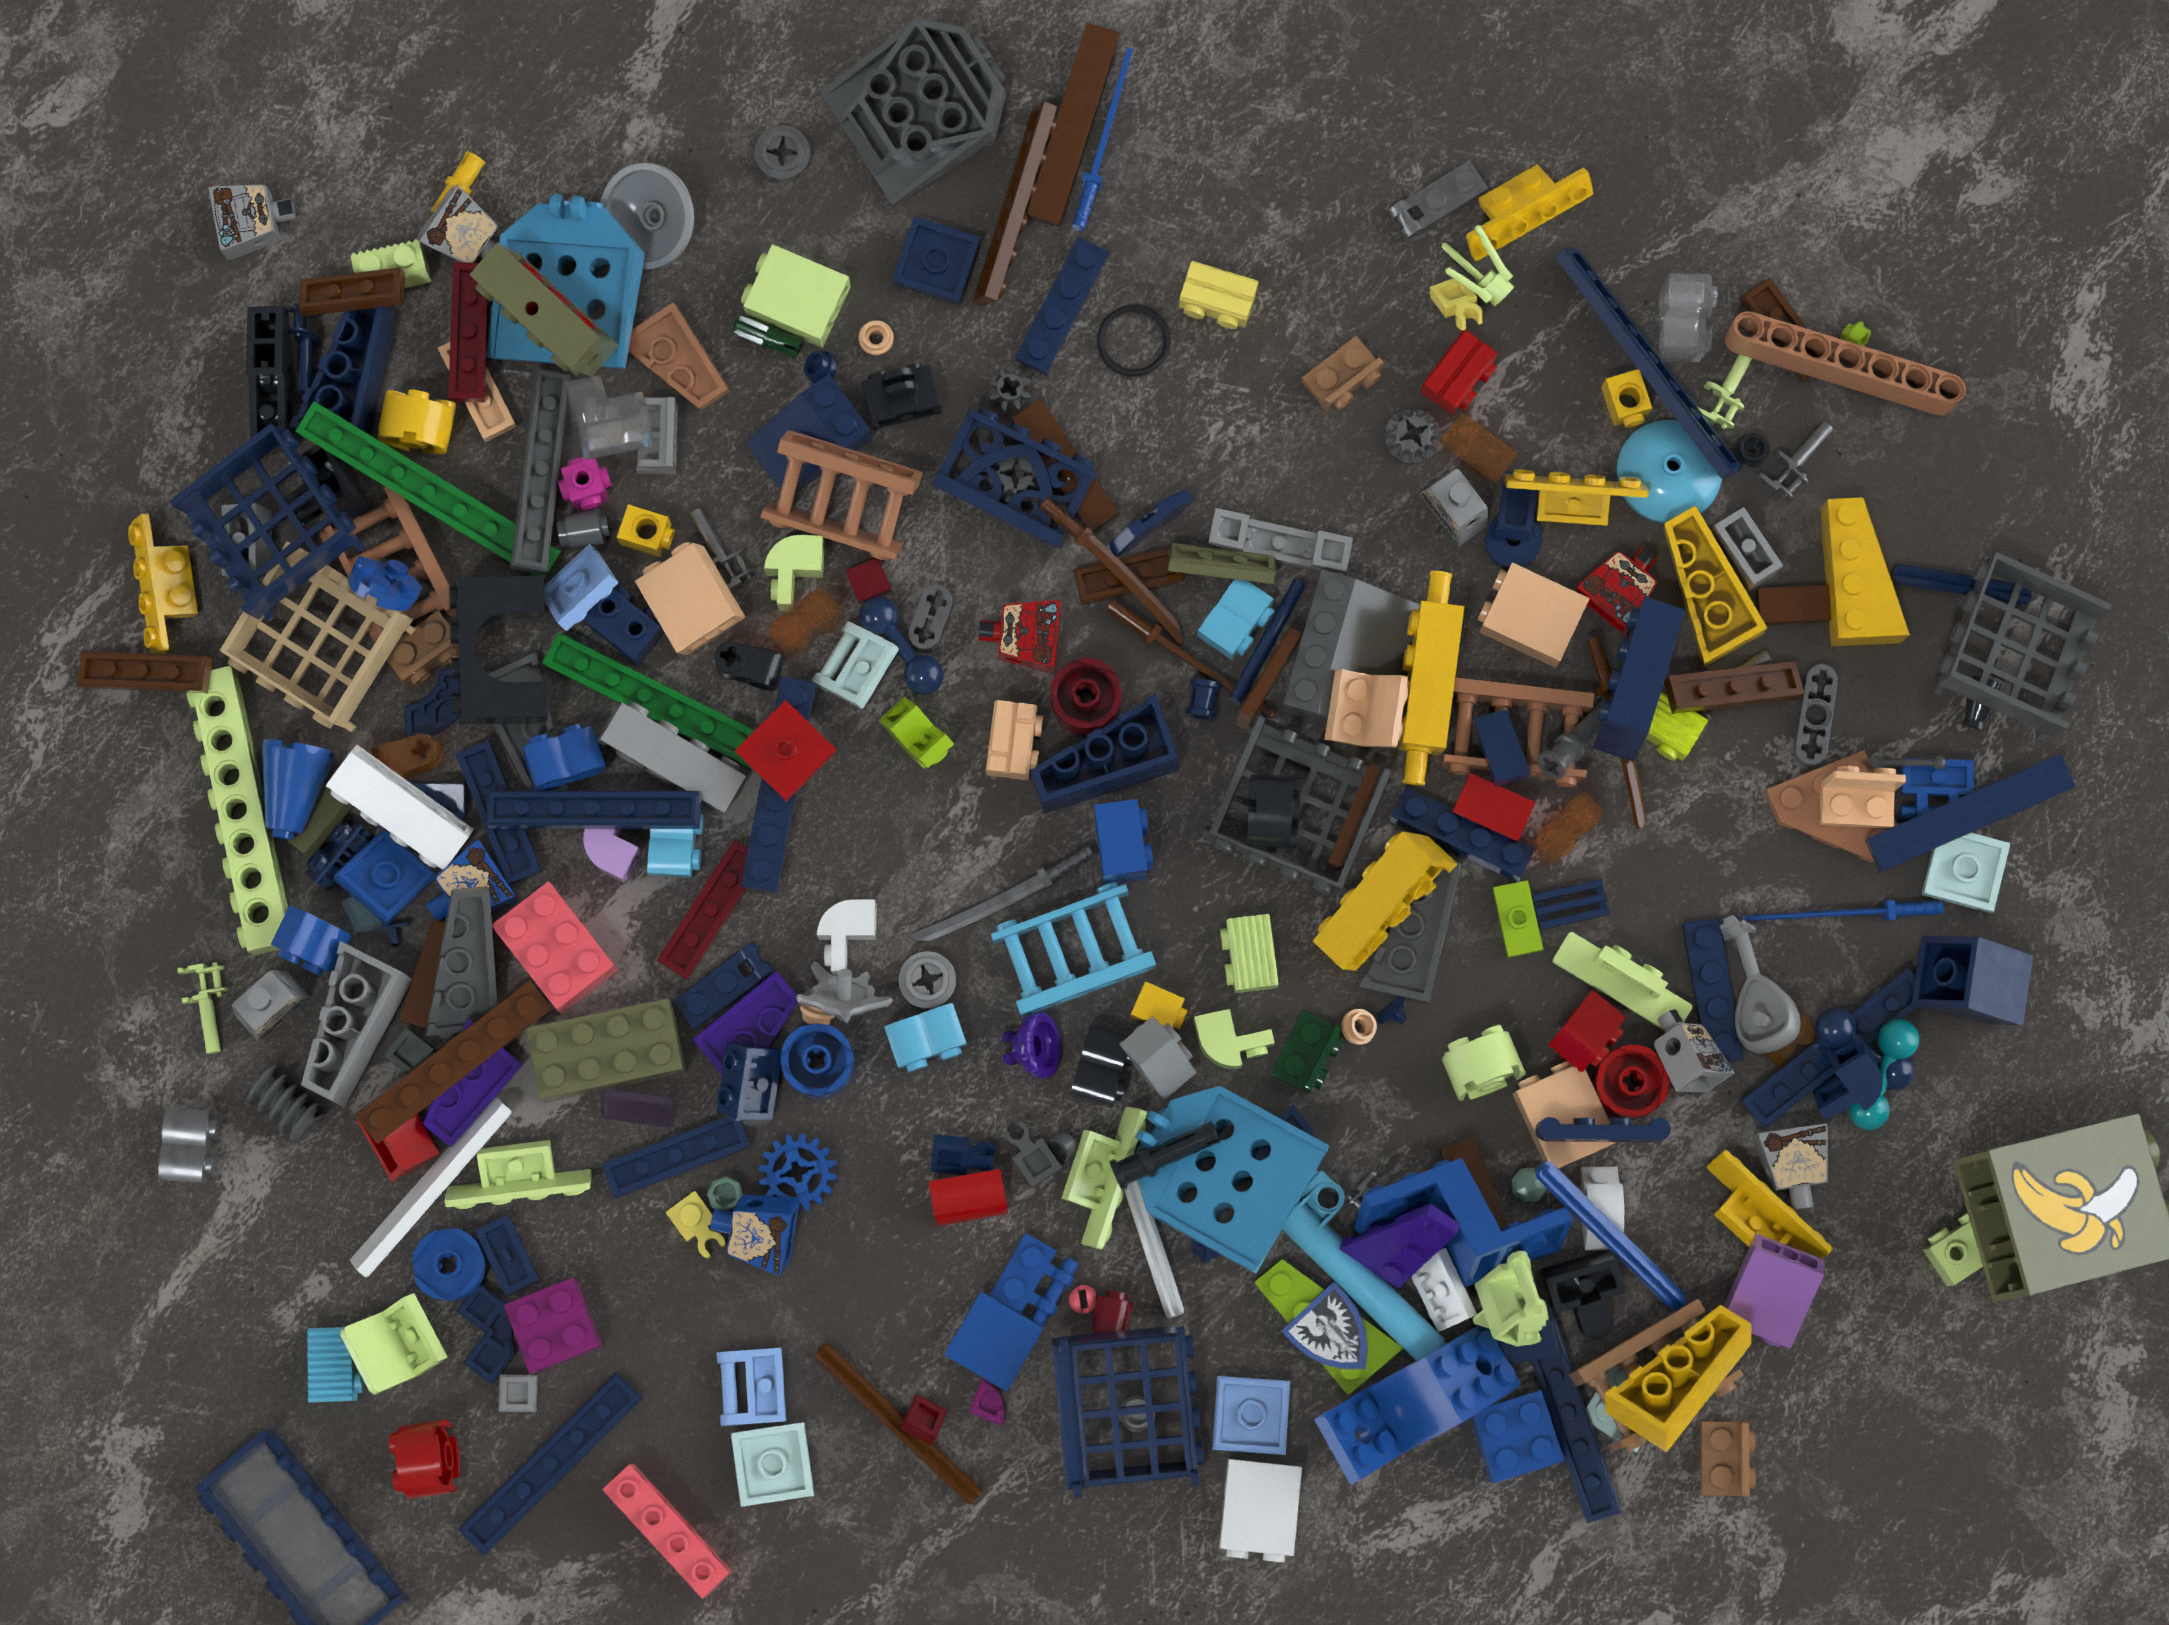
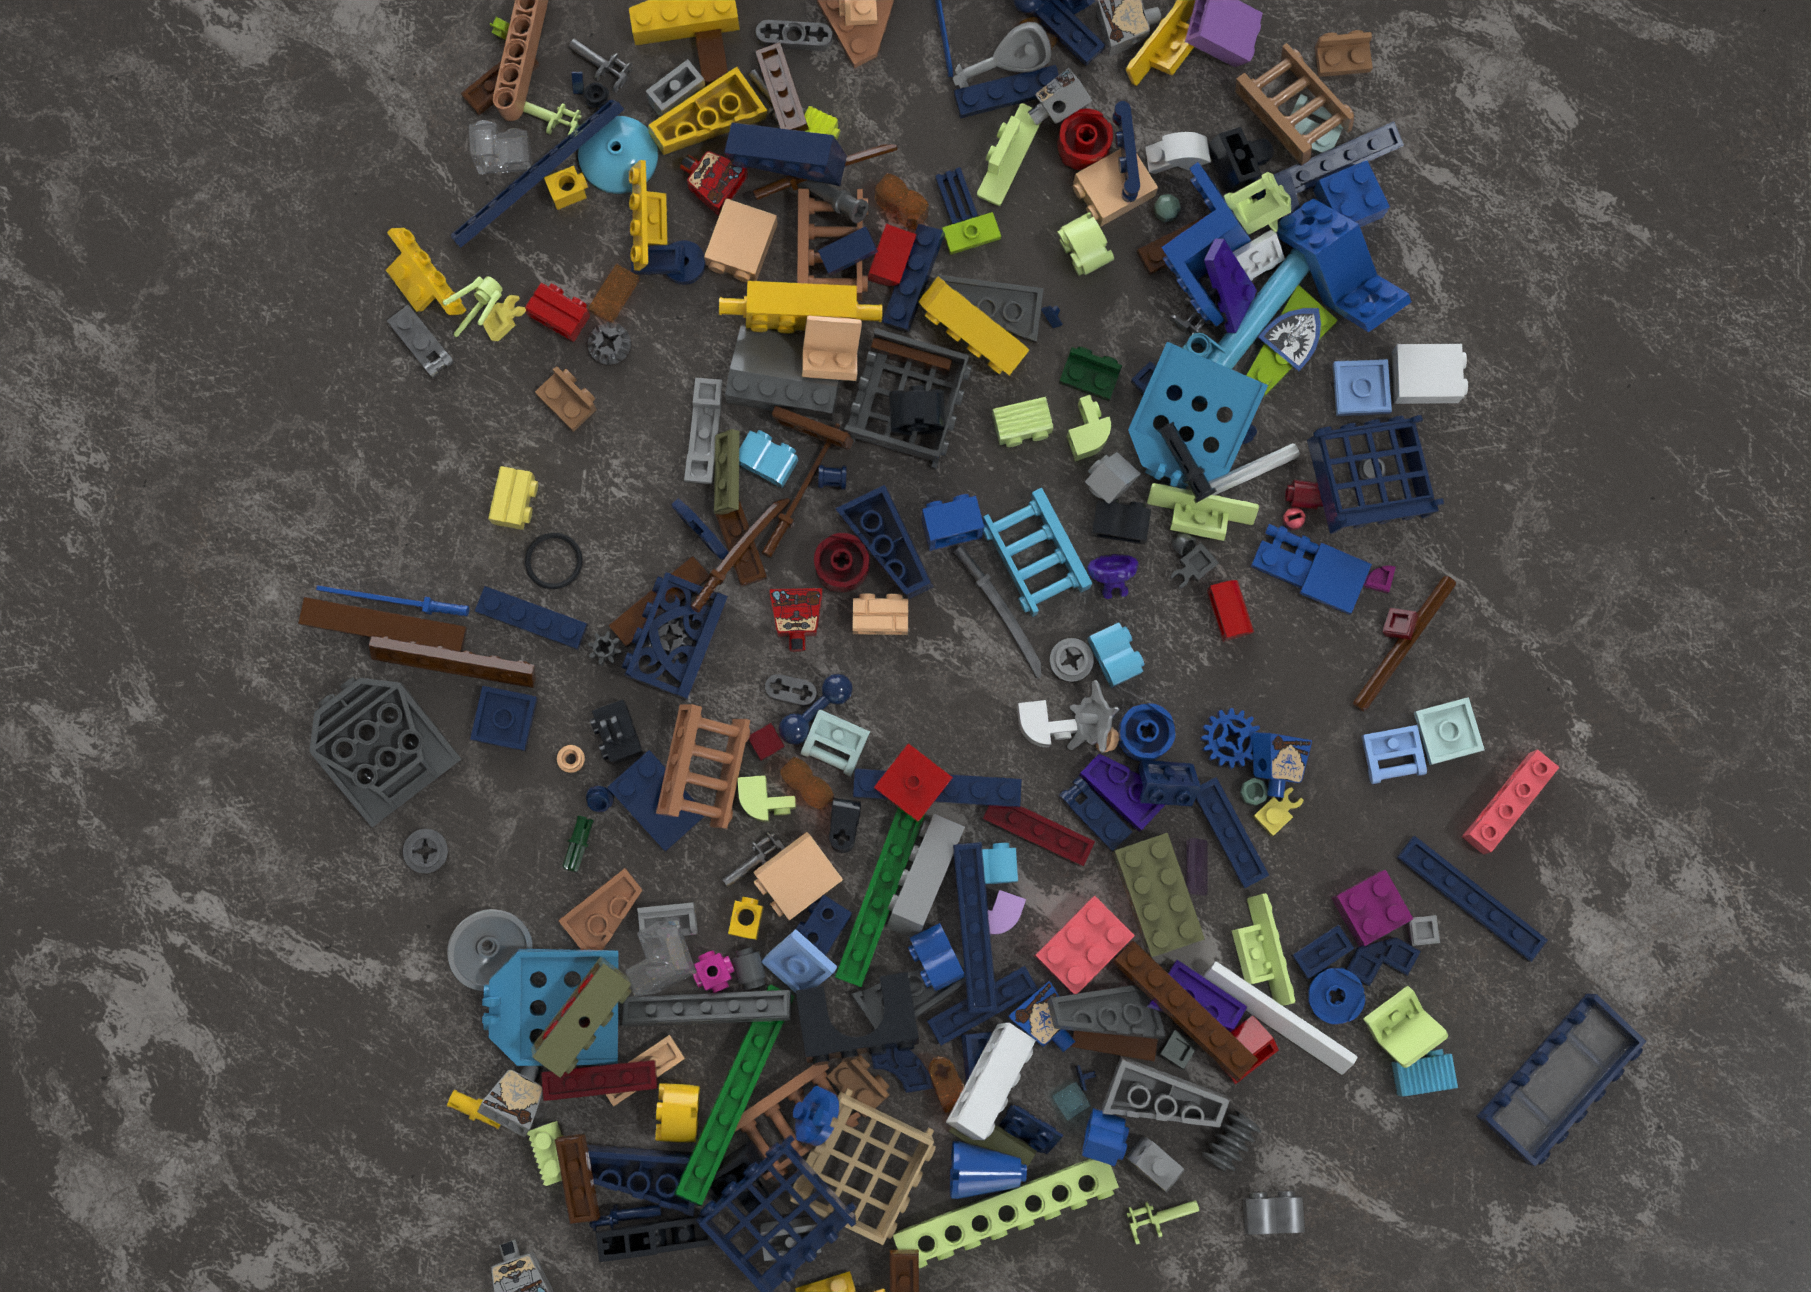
camera: 100 degrees left, 0 degrees up
(385, 877) = (1045, 1088): blue tile -> none
(424, 1459) = (1487, 991): red brick -> none
(795, 295) = (543, 825): yellowish green brick -> none
(916, 733) = (885, 687): lime brick -> none
(954, 1155) = (1201, 622): dark blue plate -> none
(1161, 1005) = (1072, 484): yellow brick -> none
(1267, 641) = (782, 434): dark blue bar -> none
(1367, 1026) = (1066, 337): light nougat plate -> none
(1456, 505) = (662, 304): light grey torso -> none
(1588, 1031) = (1053, 171): red brick -> none
(1610, 1235) = (1201, 140): blue axle -> none
(1679, 1381) = (1307, 84): yellow wedge -> none
(1772, 427) = (577, 82): none -> dark blue piece

